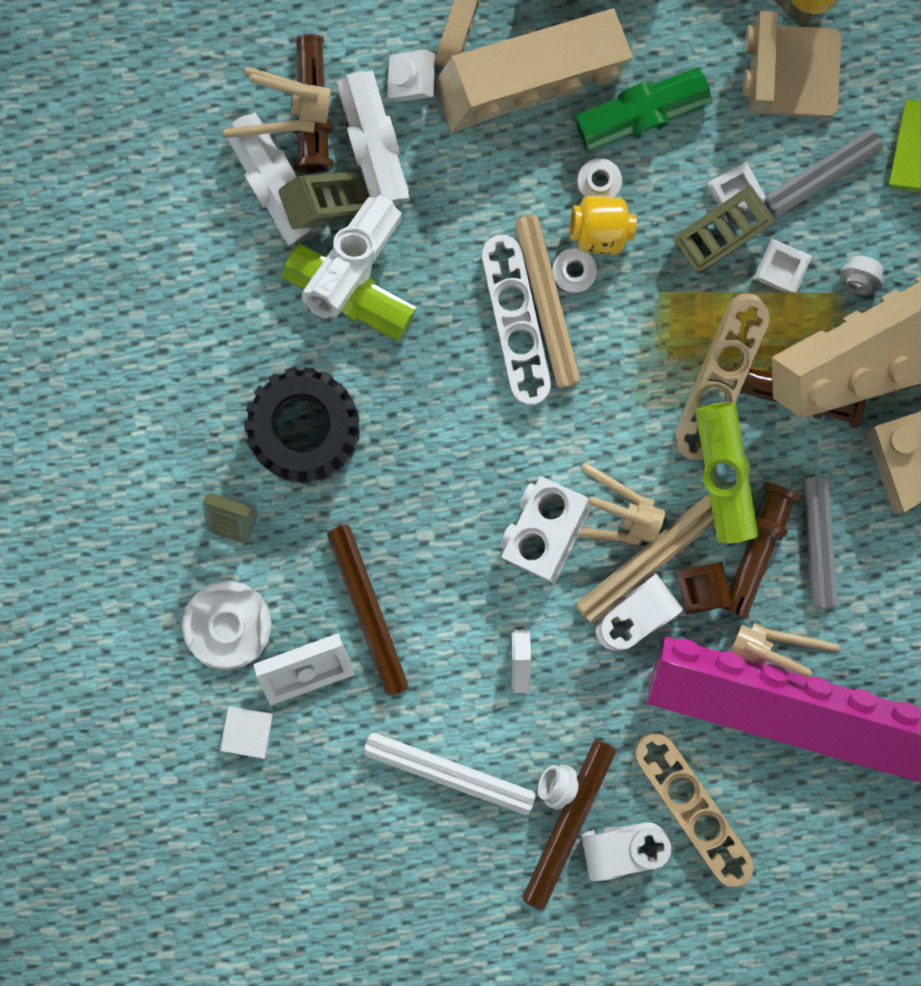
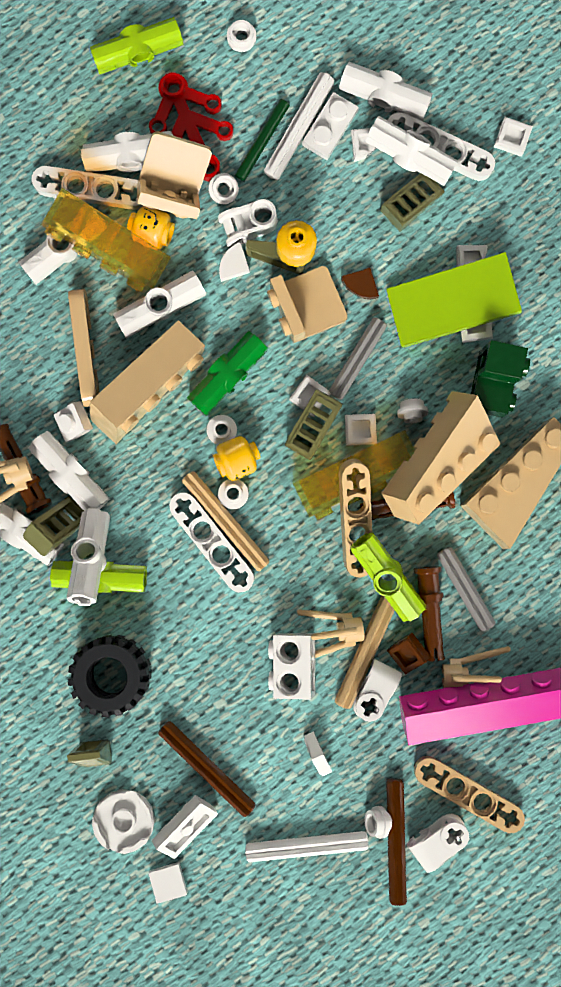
camera: 25 degrees left, 0 degrees up
(875, 77) = (361, 284): none -> reddish brown tile

